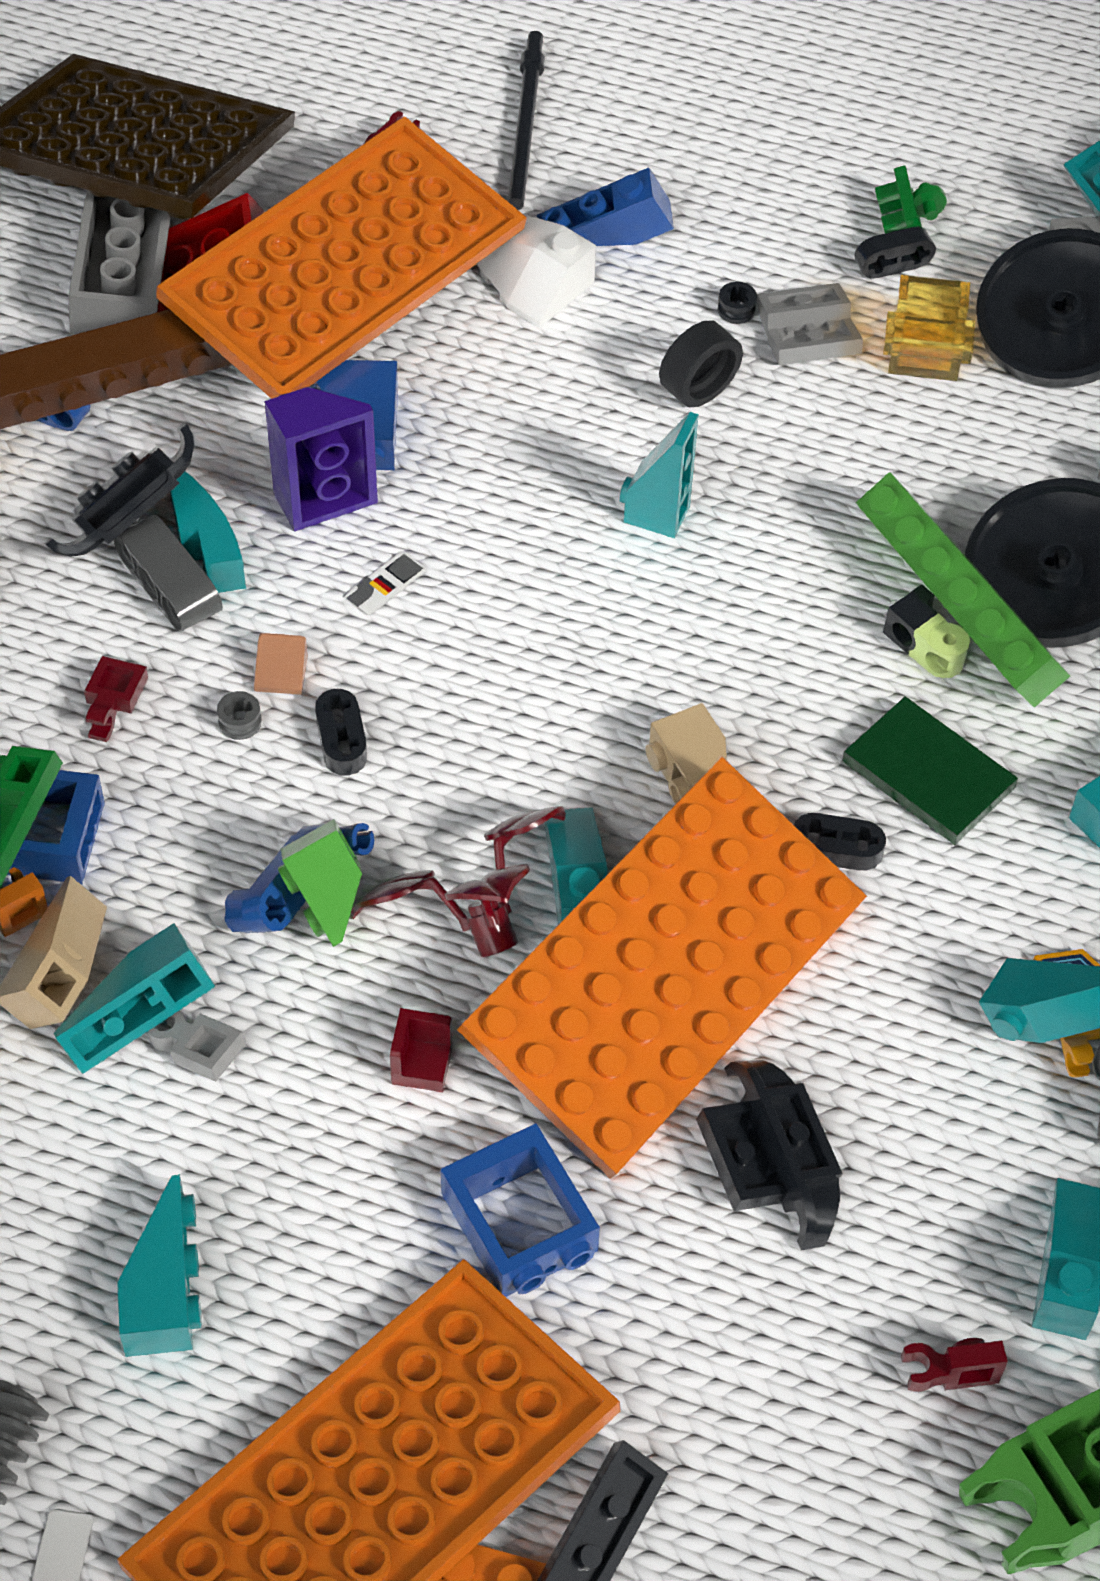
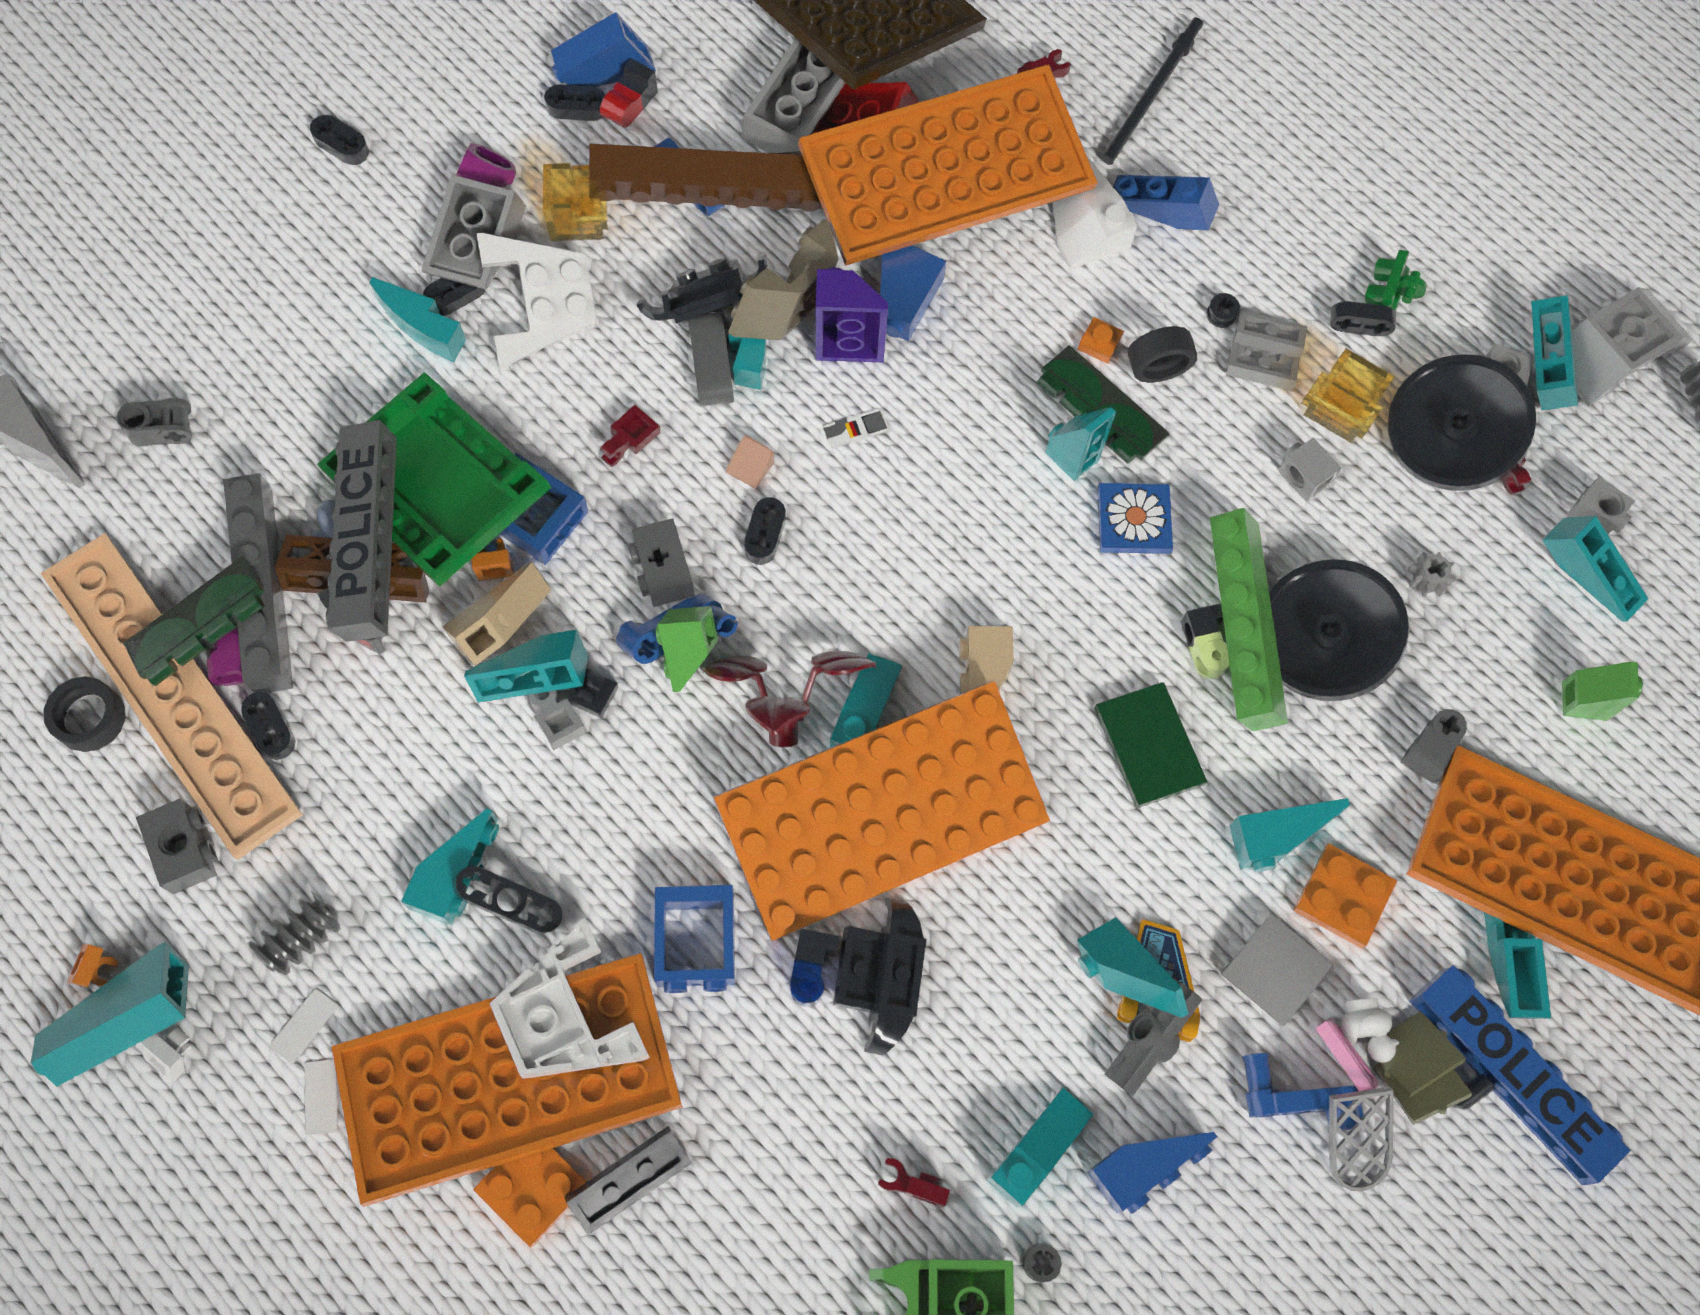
camera: 25 degrees right, 15 degrees up
(229, 454) = (776, 307): none -> dark tan slope
(232, 997) = (594, 694): none -> black tile
(235, 814) = (658, 543): none -> dark grey brick
(241, 728) = (699, 479): dark grey bush -> none
(279, 1259) = (530, 920): none -> black beam
(397, 1388) = (546, 1023): none -> white wing
(421, 1050) = (691, 793): dark red panel -> none
(618, 383) = (1100, 340): none -> orange plate
(632, 437) = (1090, 391): none -> dark green windscreen
(683, 1192) = (806, 978): none -> leg
(768, 546) = (1135, 518): none -> tile
(840, 837) = (1059, 762): black beam -> none
(930, 418) = (1308, 468): none -> light grey brick

